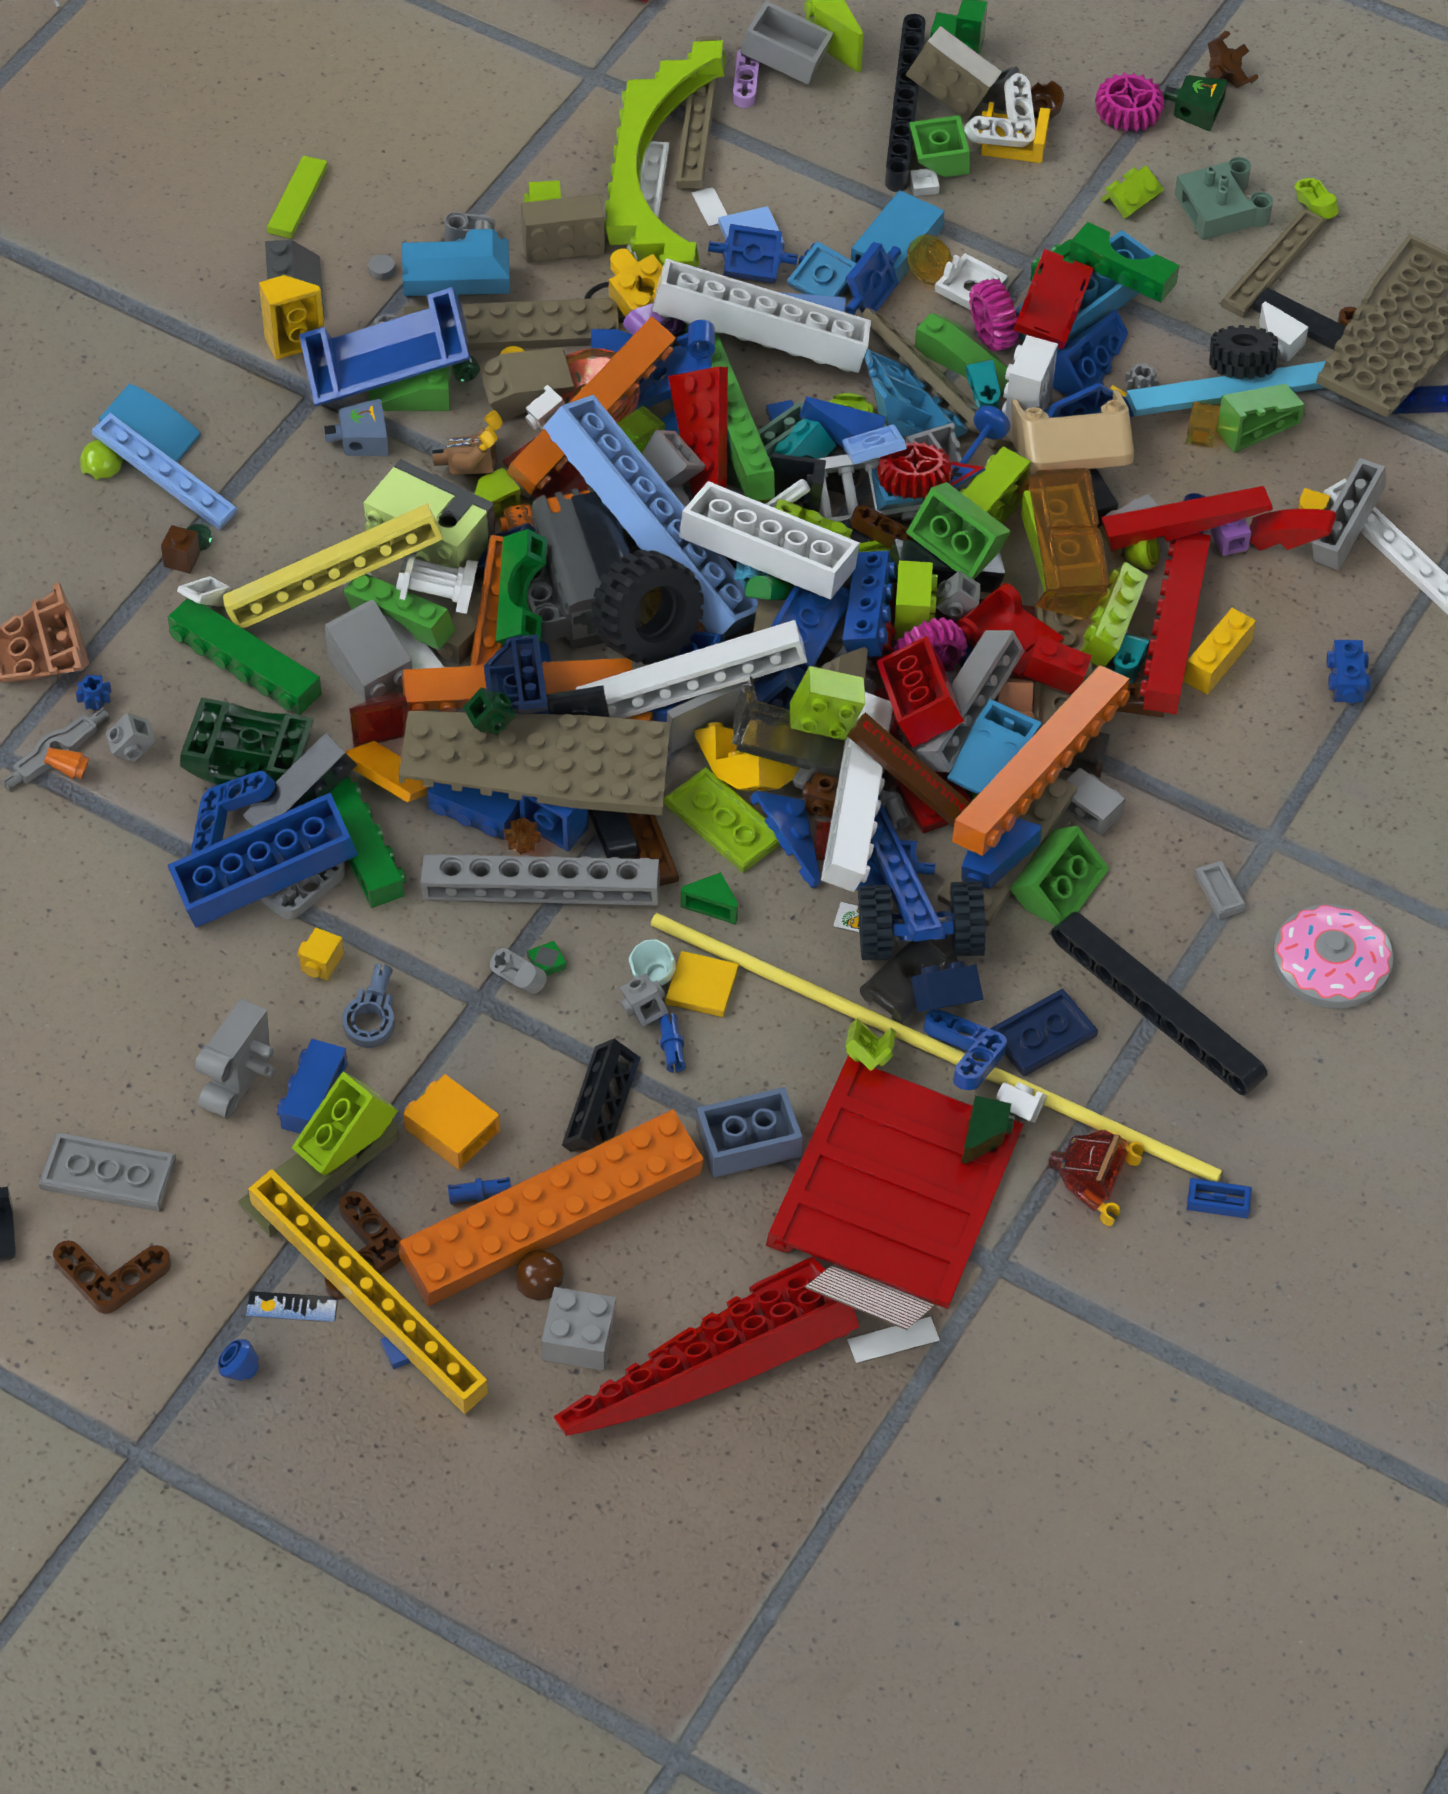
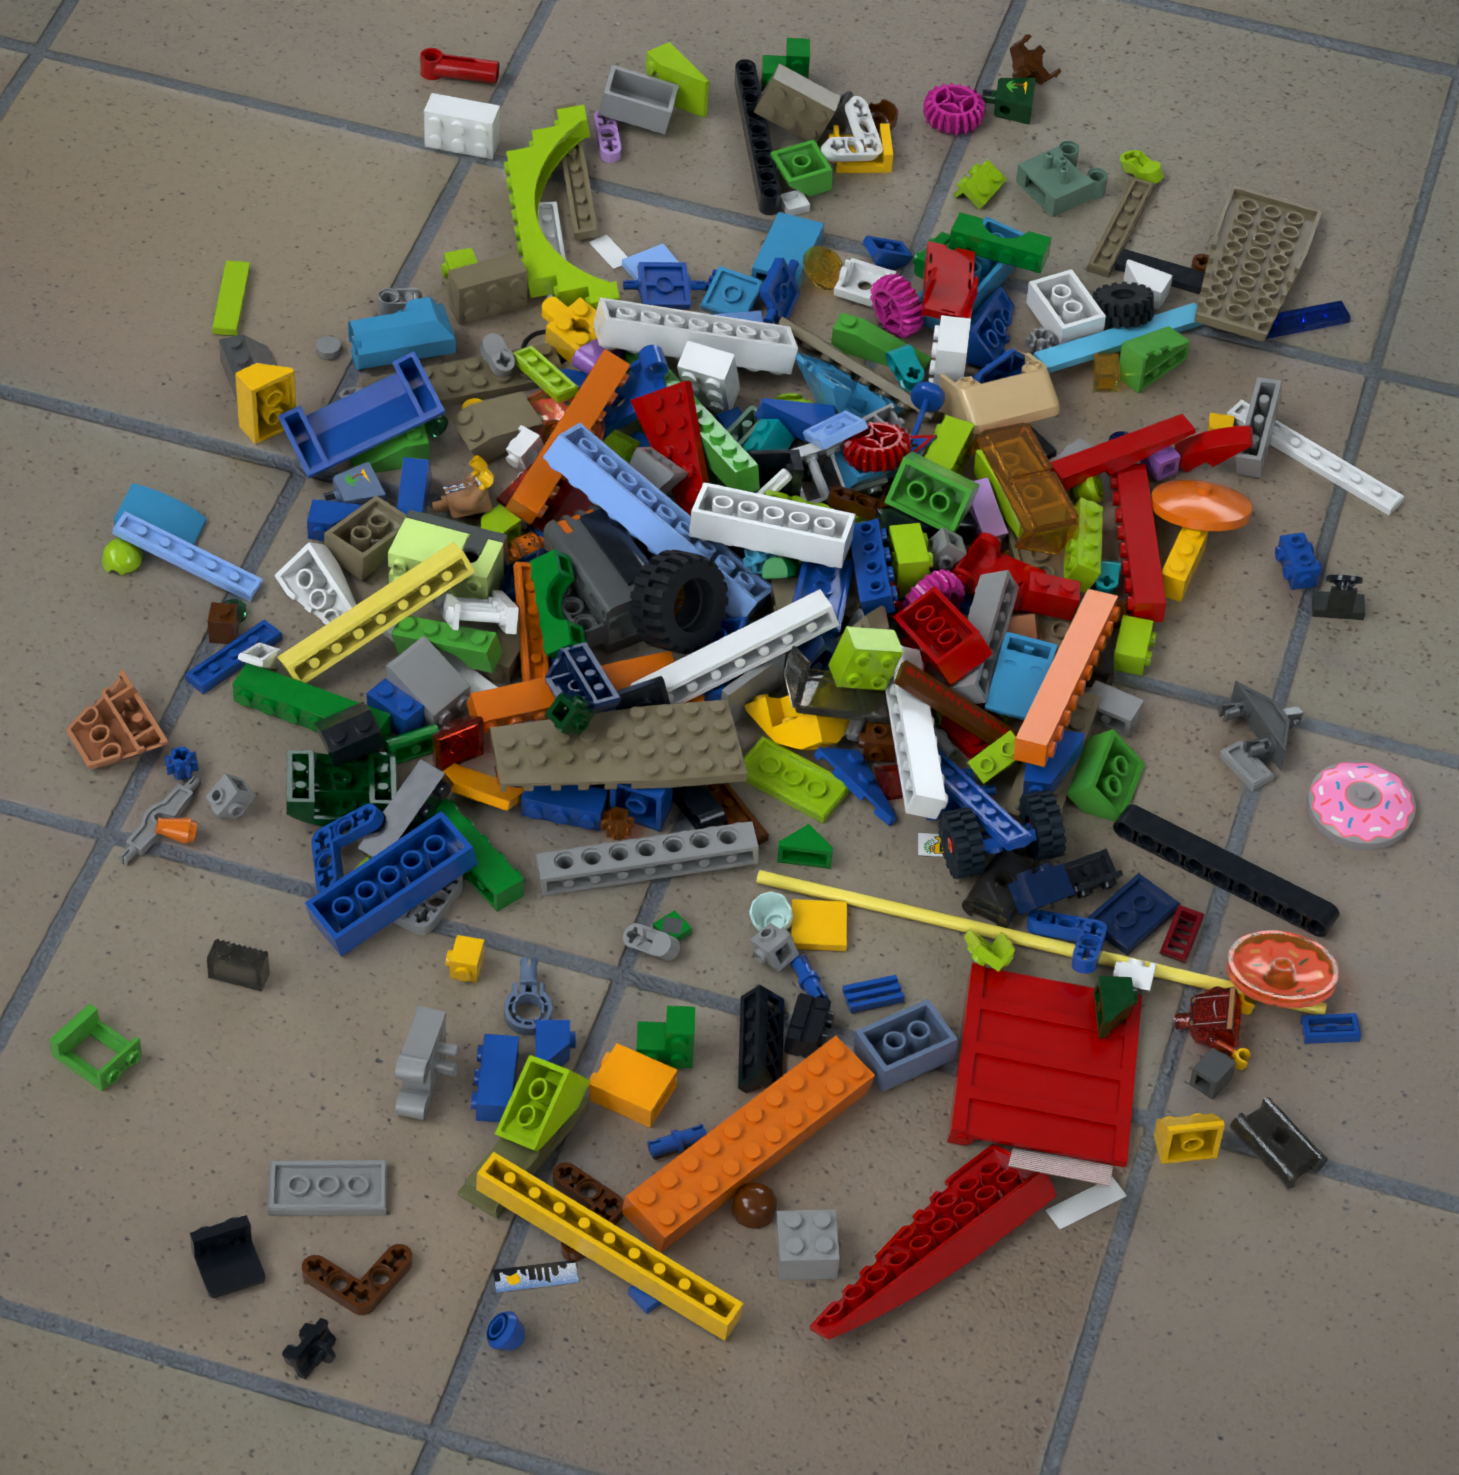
camera: 15 degrees left, 5 degrees down
(38, 1339) = (314, 1348): none -> black hips
(85, 918) = (238, 965): none -> clear smoke brick
(164, 593) = (226, 660): none -> blue tile
(268, 691) = (350, 734): none -> black slope
(290, 519) = (317, 582): none -> white wedge
(327, 456) = (325, 515): none -> blue slope
(332, 712) = (411, 744): none -> green brick
(336, 677) = (405, 711): none -> blue brick
(349, 478) = (365, 537): none -> dark tan slope
(382, 1061) = (554, 1040): none -> blue slope
(420, 435) = (414, 485): none -> blue slope
(503, 1081) = (670, 1040): none -> green brick
(550, 303) = (497, 355): none -> light grey piece
(590, 44) = (462, 126): none -> white brick
(591, 331) = (545, 374): none -> lime tile
(655, 1090) = (808, 1025): none -> black brick
(736, 1065) = (871, 990): none -> blue tile
(762, 364) = (712, 376): none -> white brick
(936, 837) = (994, 758): none -> lime brick
(1005, 253) = (887, 252): none -> blue slope
(1008, 979) = (1092, 872): none -> black bracket
(1018, 560) = (987, 513): none -> lavender slope
(1021, 1290) = (1188, 1137): none -> yellow slope
(1072, 1224) = (1212, 1073): none -> dark grey brick
(1093, 1042) = (1187, 915): none -> dark red slope
(1125, 1334) = (1278, 1142): none -> clear smoke piece
(1136, 734) = (1133, 644): none -> lime brick
(1178, 344) = (1065, 307): none -> white brick
(1182, 1124) = (1282, 969): none -> clear orange dish
(1256, 843) = (1265, 719): none -> dark grey connector
(1258, 591) = (1201, 505): none -> orange dish
(1380, 723) = (1342, 599): none -> pearl dark grey piece

